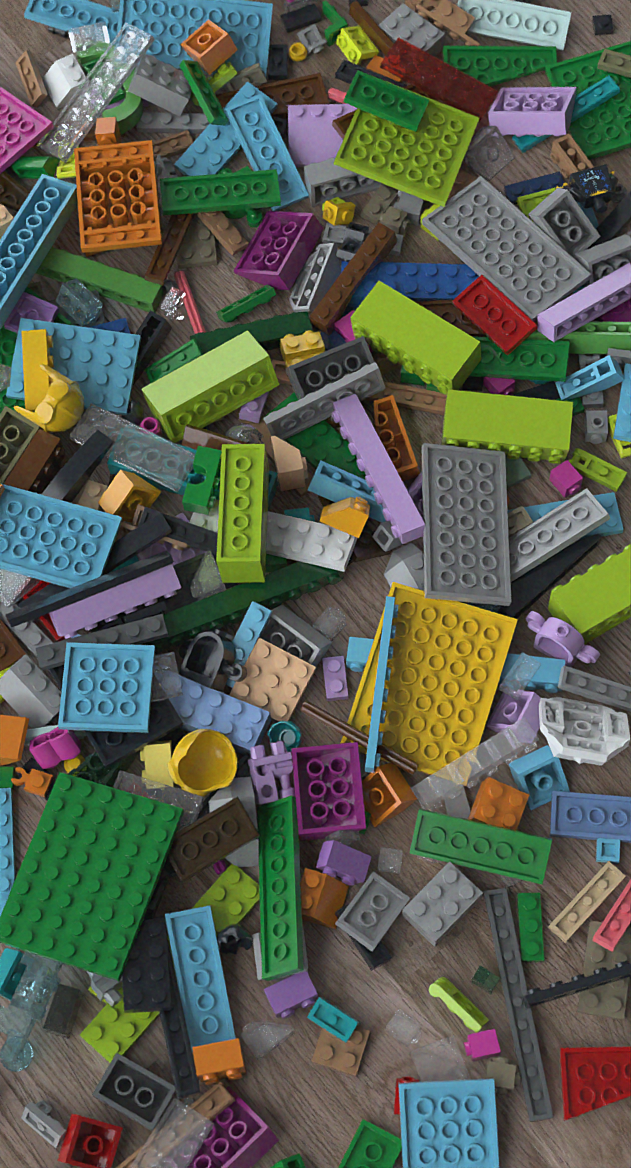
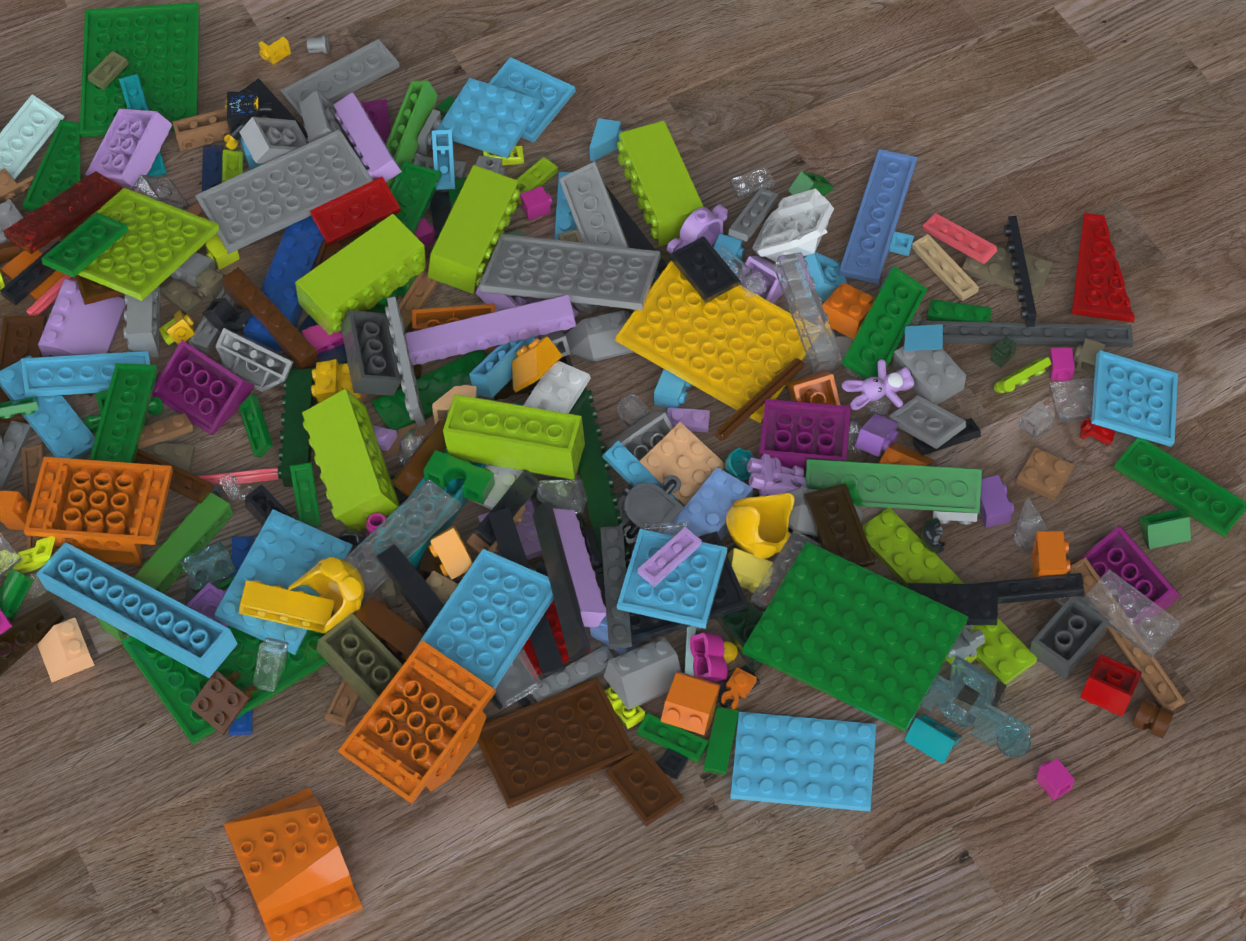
camera: 80 degrees left, 10 degrees down
(38, 1118) = (1086, 723): light grey hinge -> none
(121, 677) = (669, 557): none -> lavender plate
(200, 976) = (963, 564): medium azure plate -> none
(333, 1019) = (1023, 468): teal panel -> none
(380, 692) = (717, 363): medium azure plate -> none
(399, 850) = (876, 387): none -> lavender animal
(471, 888) = (923, 337): none -> medium azure sticker
(497, 649) = (704, 269): none -> black plate
(498, 701) = (754, 284): none -> clear bracket
(602, 25) = (47, 82): black plate -> none

